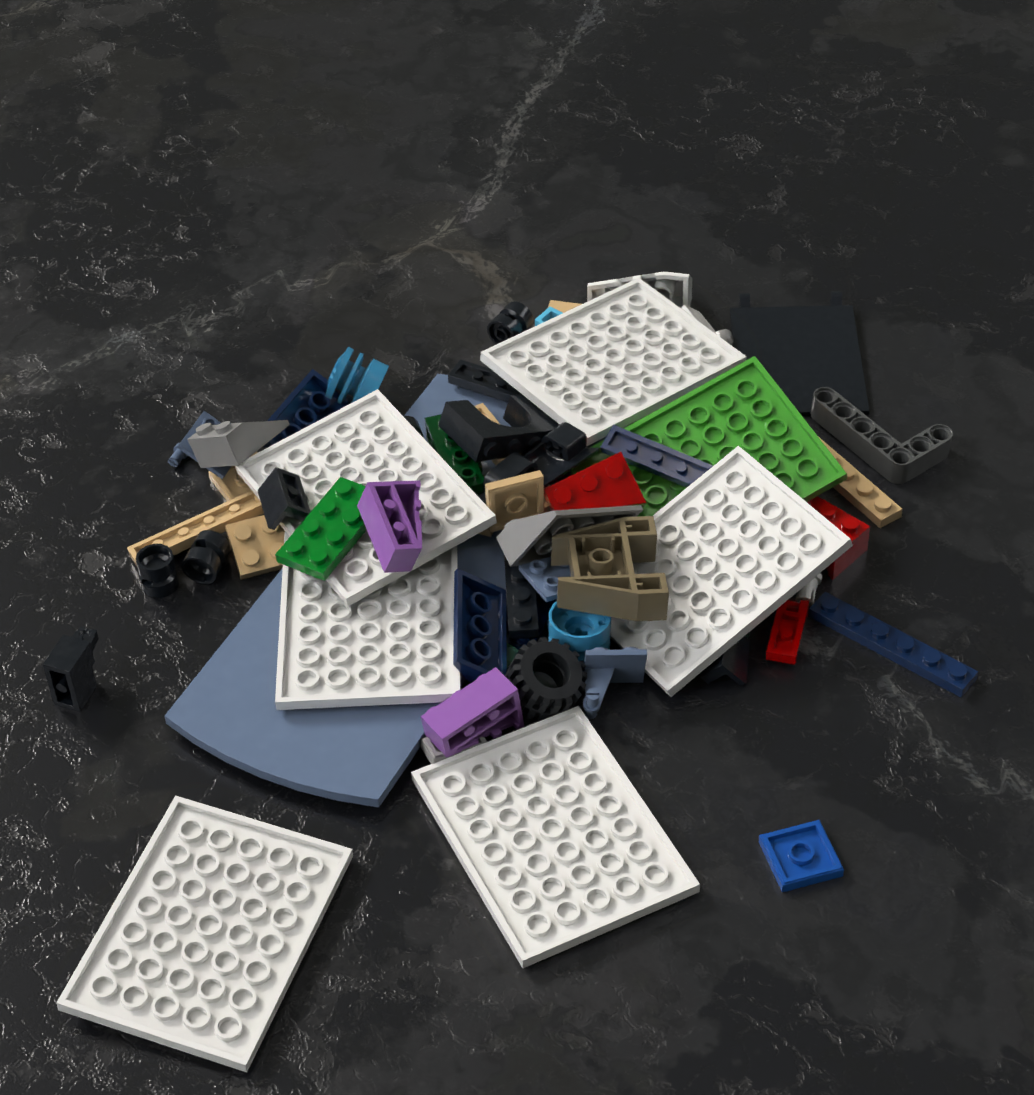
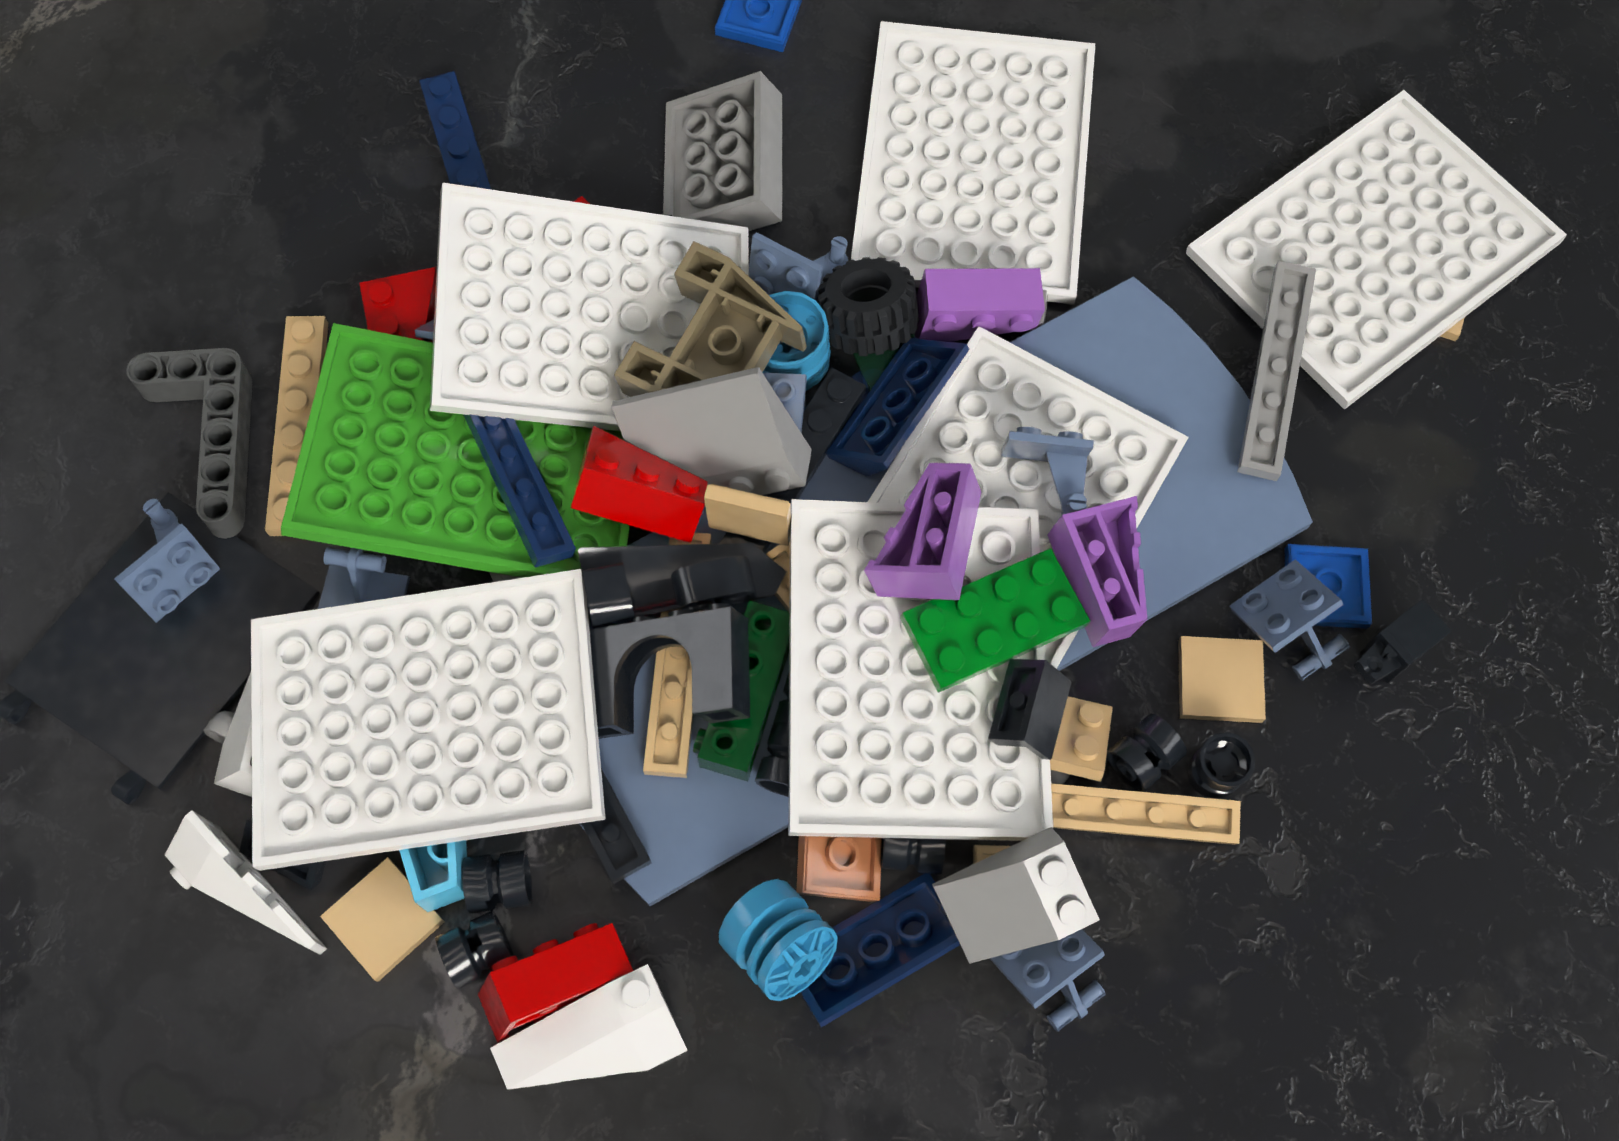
camera: 150 degrees left, 25 degrees up
(135, 705) = (1345, 574): none -> blue tile
(155, 659) = (1289, 607): none -> sand blue plate
(180, 623) = (1221, 679): none -> tan tile
(238, 782) = (1277, 371): none -> light grey plate
(285, 584) = (1102, 564): none -> medium lavender wedge
(355, 617) = (1065, 456): none -> sand blue plate
(425, 336) = (599, 1035): none -> white wedge
(460, 329) = (551, 977): none -> red wedge
(725, 733) = (725, 154): none -> light grey slope
(821, 371) = (169, 568): none -> sand blue plate

